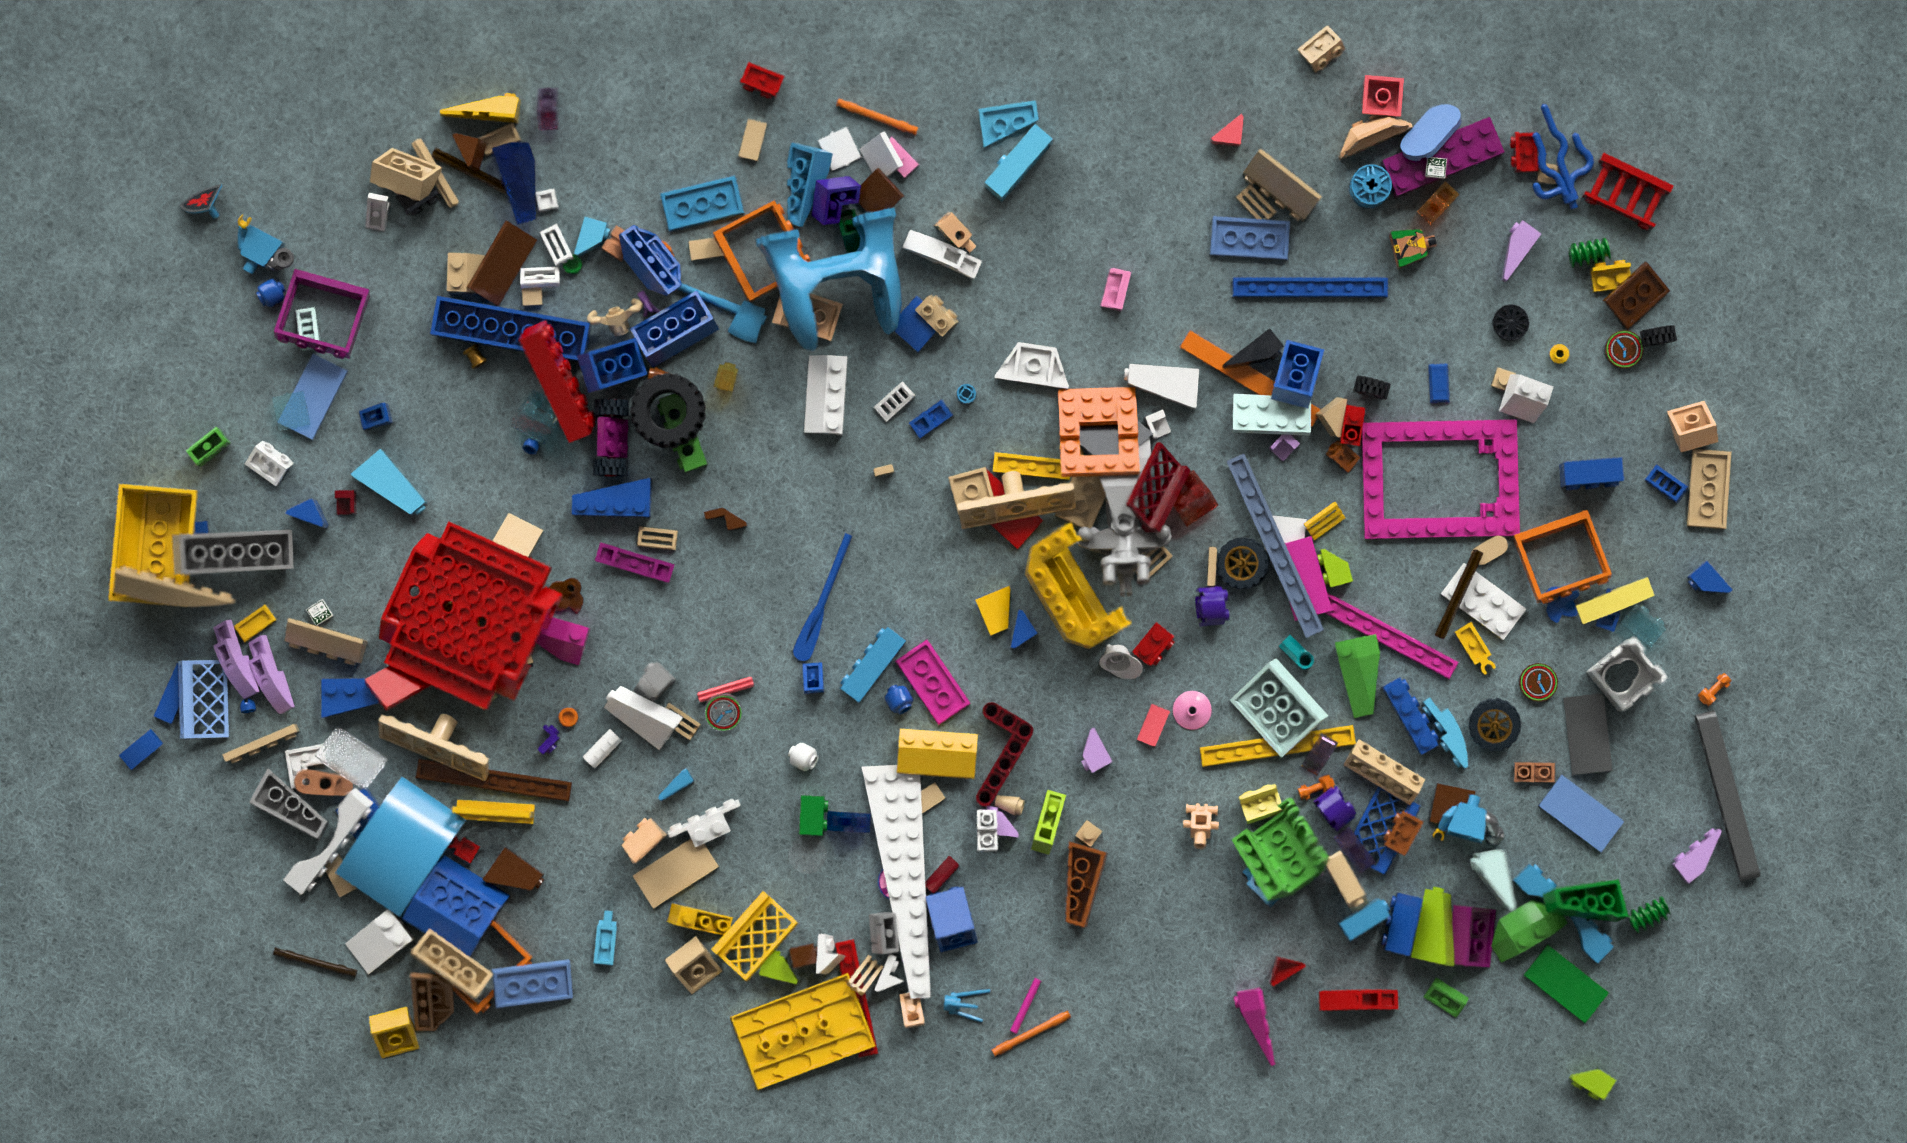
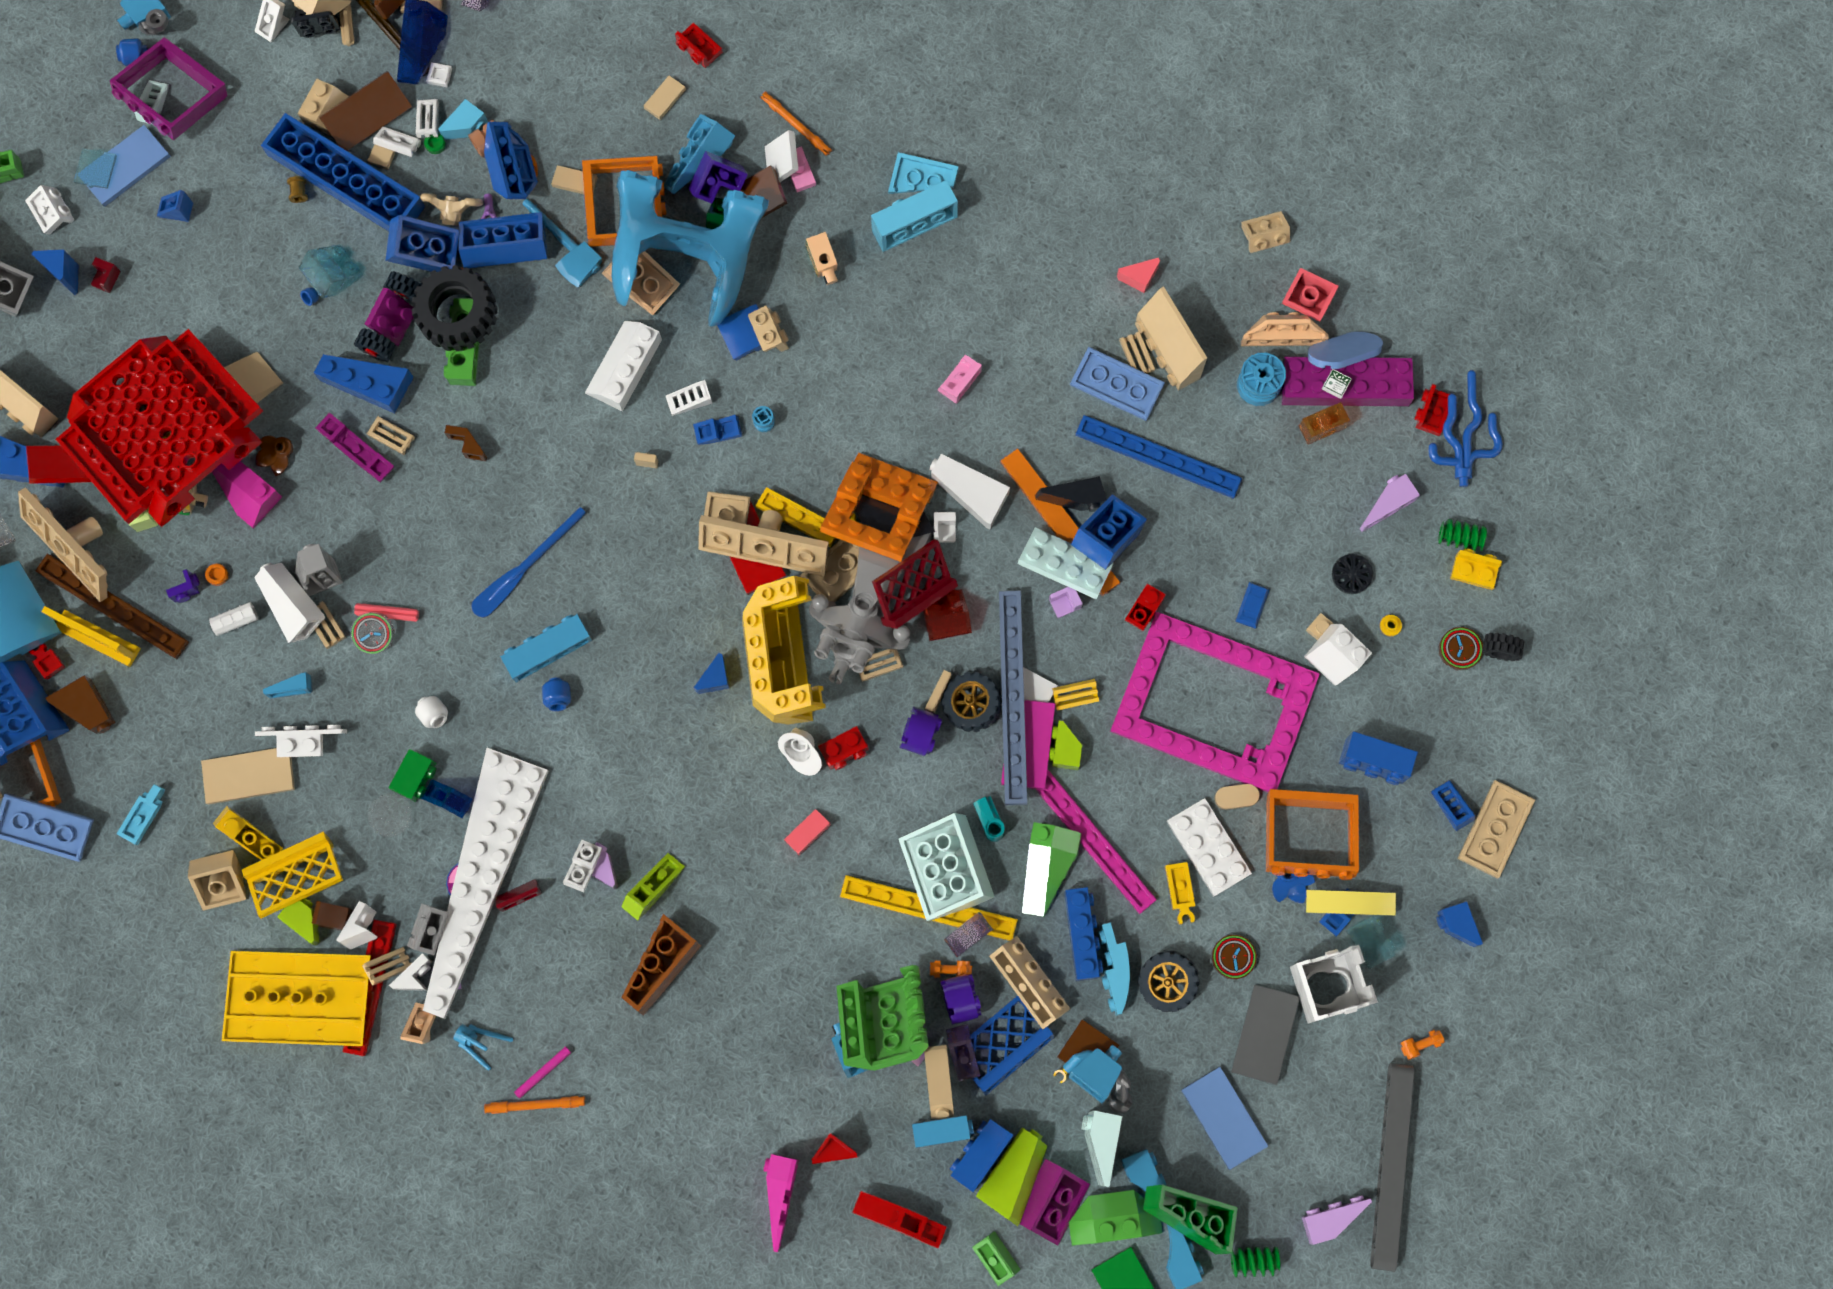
camera: 20 degrees right, 10 degrees down
(319, 612) = (25, 371): tile -> none
(388, 481) = (154, 271): medium azure slope -> none
(558, 381) = (359, 234): red brick -> none
(643, 840) = (227, 729): light nougat slope -> none
(702, 203) = (586, 136): dark azure tile -> none
(726, 377) = (531, 306): clear yellow brick -> none
(813, 678) = (478, 638): blue slope -> none
(841, 146) = (747, 139): white piece -> none
(931, 796) = (544, 809): tan tile -> none
(932, 682) = (599, 692): dark pink tile -> none
(937, 753) = (569, 765): yellow slope -> none
(942, 253) = (800, 273): white slope -> none
(951, 919) = (505, 945): slope -> none
(995, 610) = (695, 645): yellow slope -> none
(1006, 753) = (640, 795): dark red beam -> none
(1010, 804) = (622, 851): tan cone -> none
(1034, 366) = (843, 419): white wing -> none
(1088, 833) = (690, 916): tan plate -> none
(1094, 753) = (733, 834): lavender slope -> none
(1184, 717) = (863, 841): bright pink dish -> none
(1200, 823) = (811, 954): light nougat piece -> none
(1260, 803) = (884, 960): light yellow bracket -> none
(1333, 416) = (1127, 592): tan slope -> none
(1342, 455) = (1122, 636): dark orange bracket -> none
(1371, 387) = (1180, 578): black tyre -> none
(1403, 833) = (1022, 1054): dark orange bracket -> none
(1410, 246) = (1278, 455): torso -> none
(1458, 594) = (1185, 827): dark brown axle -> none
(1534, 772) = (1191, 1052): nougat slope -> none
(1542, 178) = (1444, 446): tan tile -> none
(1625, 172) = (1546, 486): red fence -> none
(1636, 295) = (1495, 598): reddish brown tile -> none
(1693, 426) = (1504, 756): light nougat slope -> none

